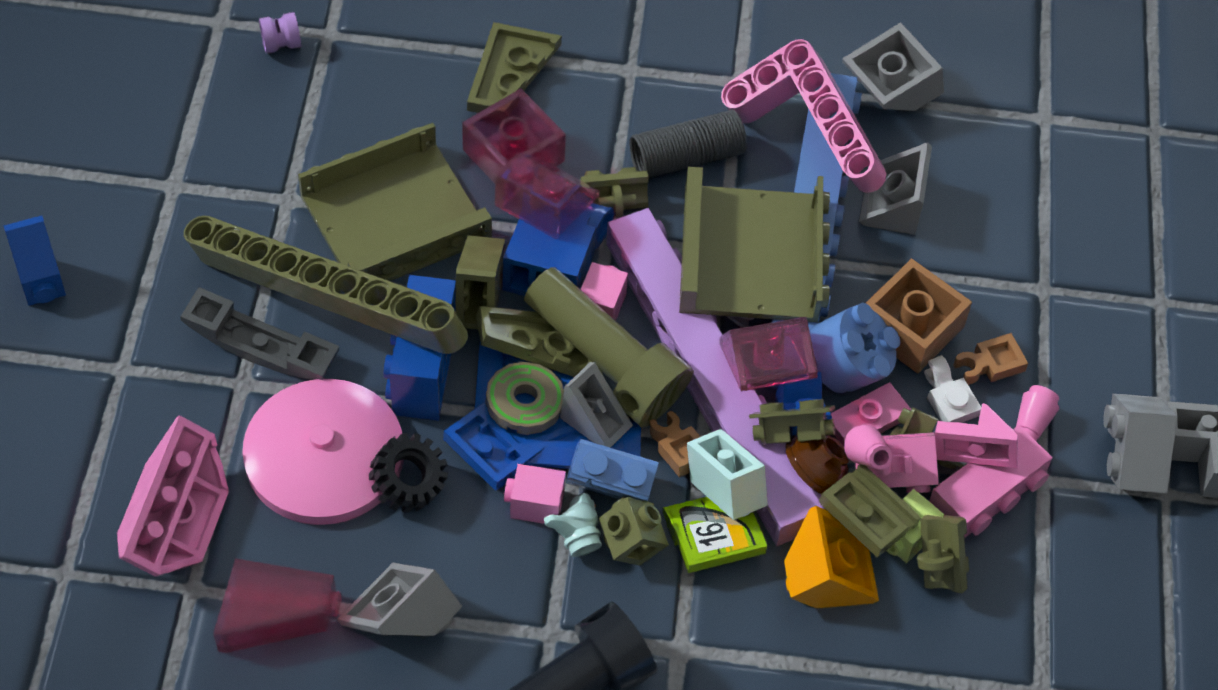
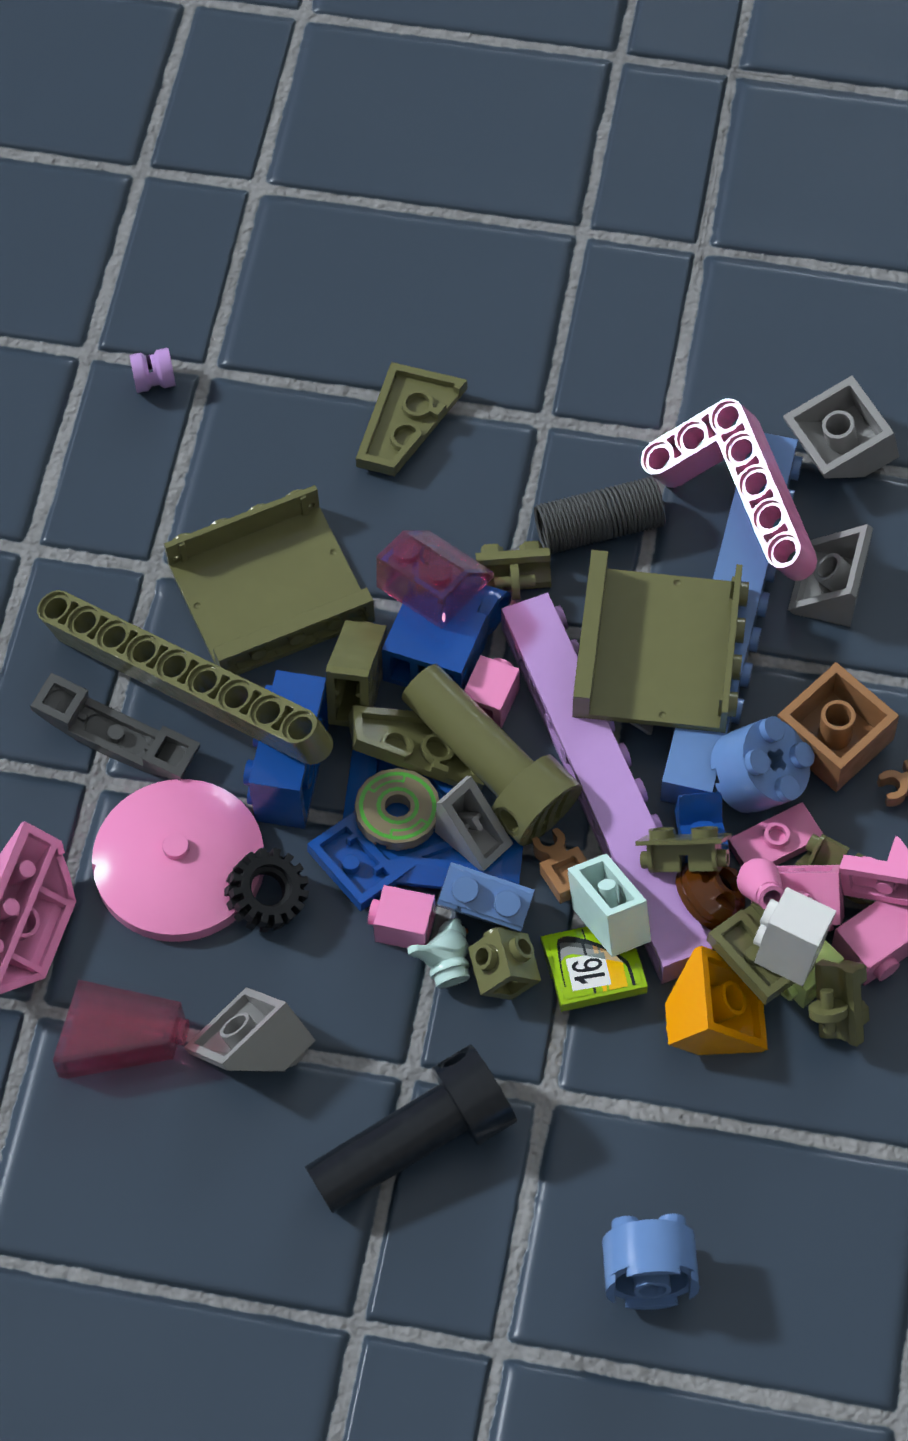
camera: 10 degrees right, 5 degrees up
(510, 128) = (402, 498): clear pink brick -> none
(770, 353) = (666, 773): clear pink slope -> none
(902, 490) = (792, 935): none -> white brick
(950, 399) = (869, 822): white plate -> none

